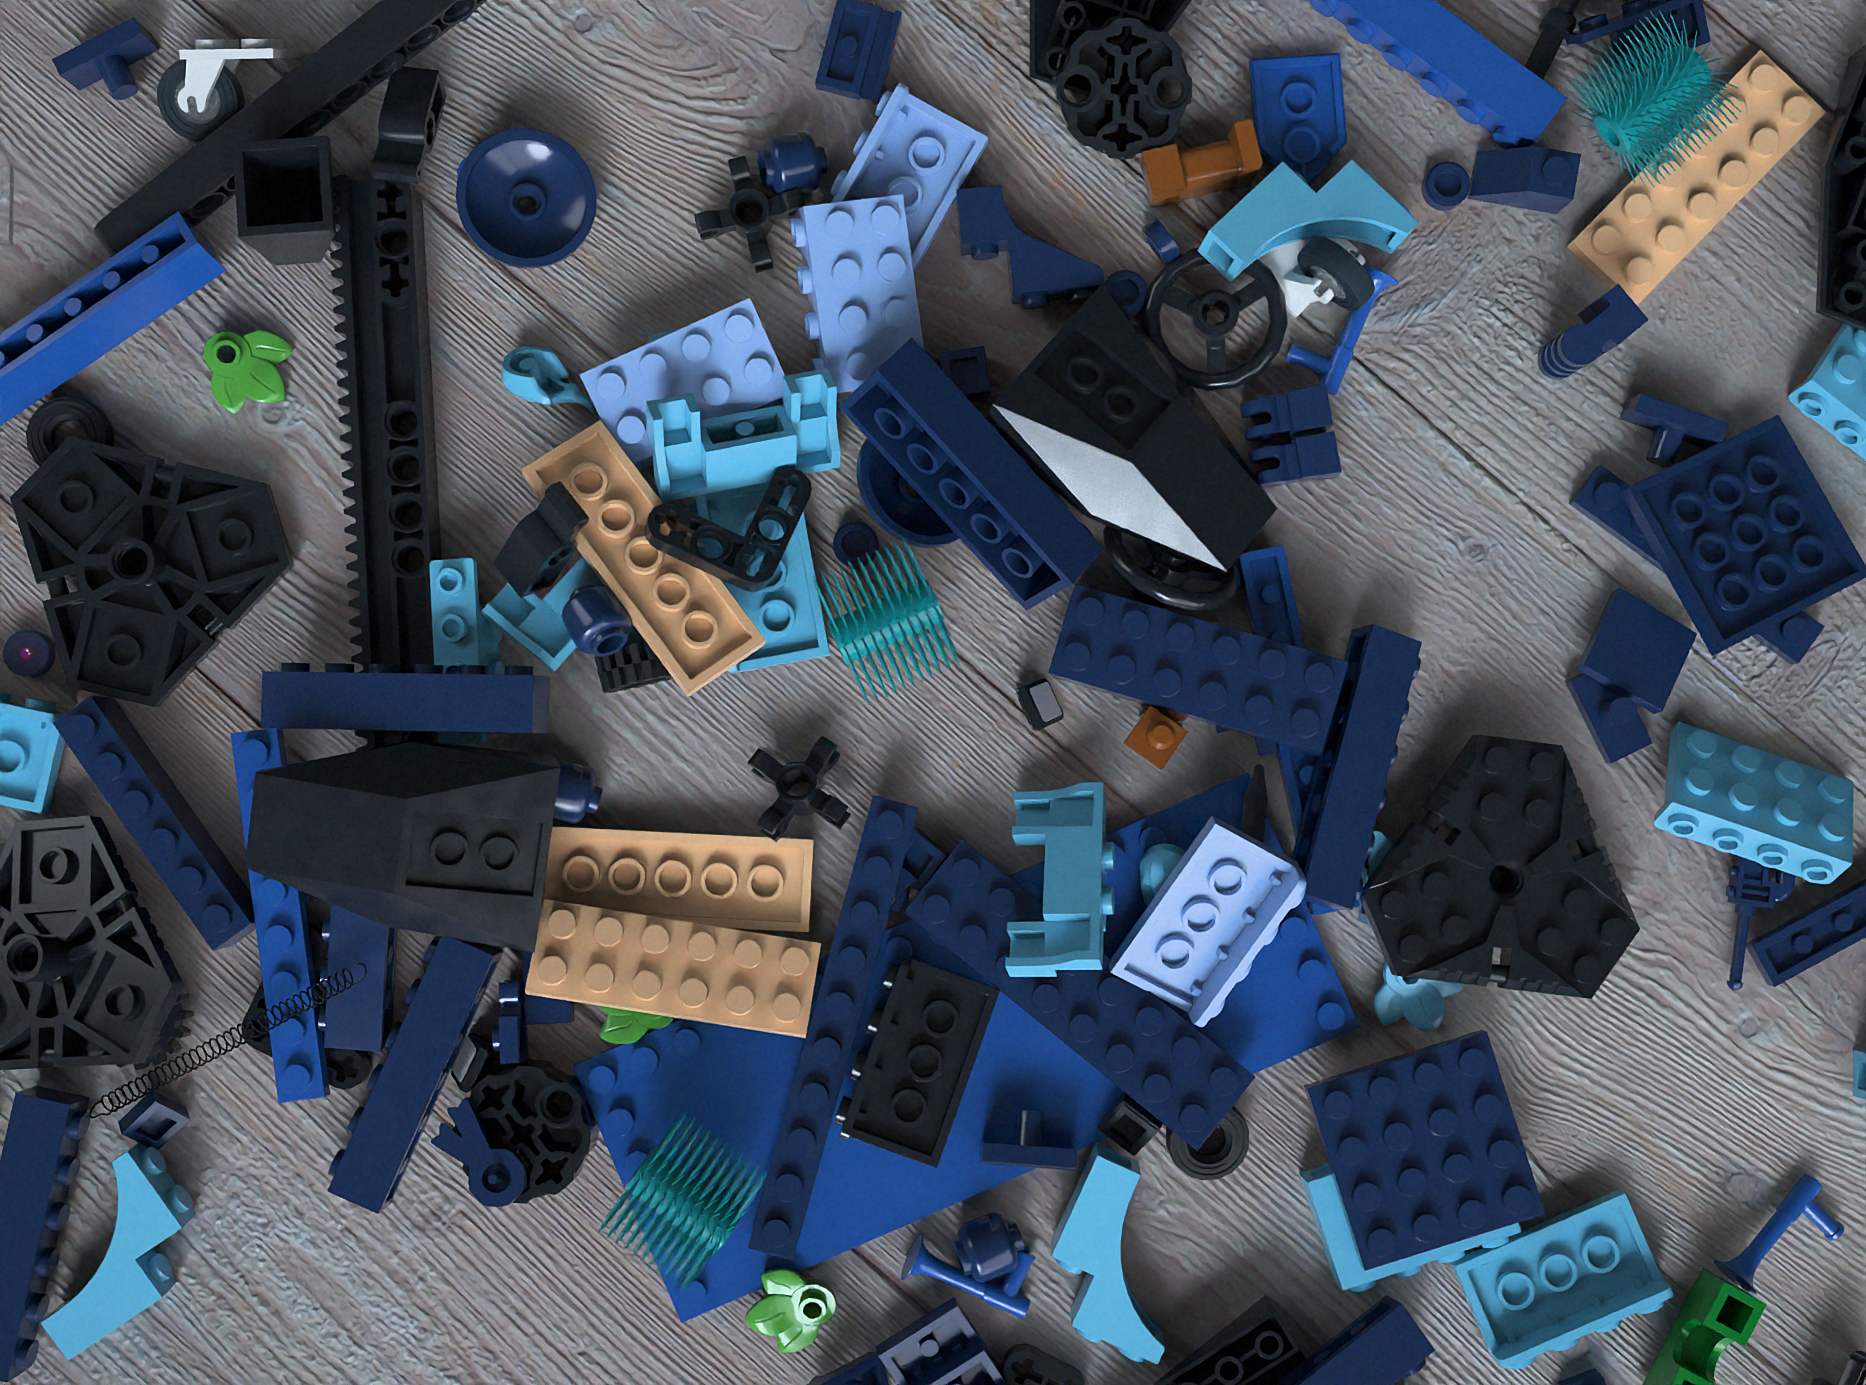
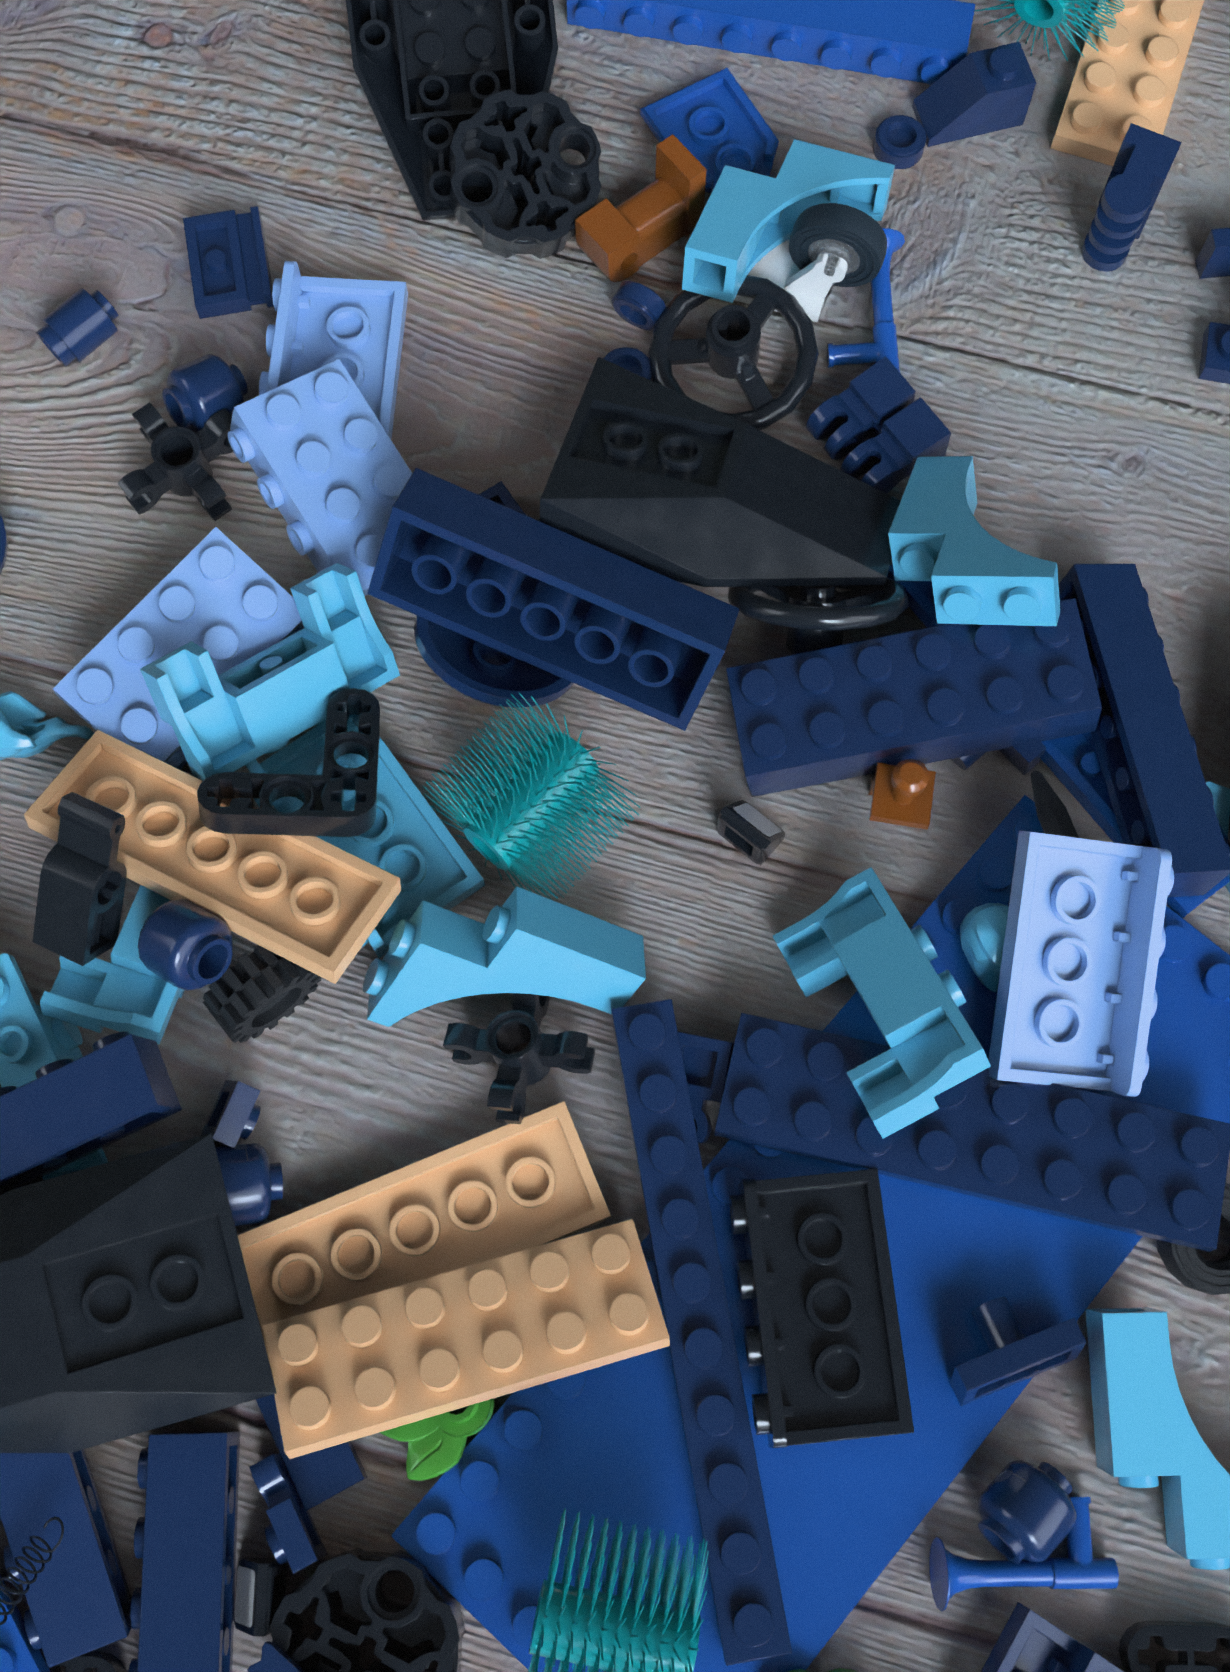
camera: 30 degrees left, 15 degrees down
(583, 740) = (233, 1114): none -> dark blue plate
(718, 55) = (78, 326): none -> dark blue brick
(827, 723) = (520, 949): none -> medium azure arch
(853, 542) = (445, 745): dark blue tile -> none
(1034, 268) = (517, 383): dark blue arch -> none
(1129, 1124) = (1115, 1262): black slope -> none
(1279, 562) = (969, 569): none -> medium azure arch

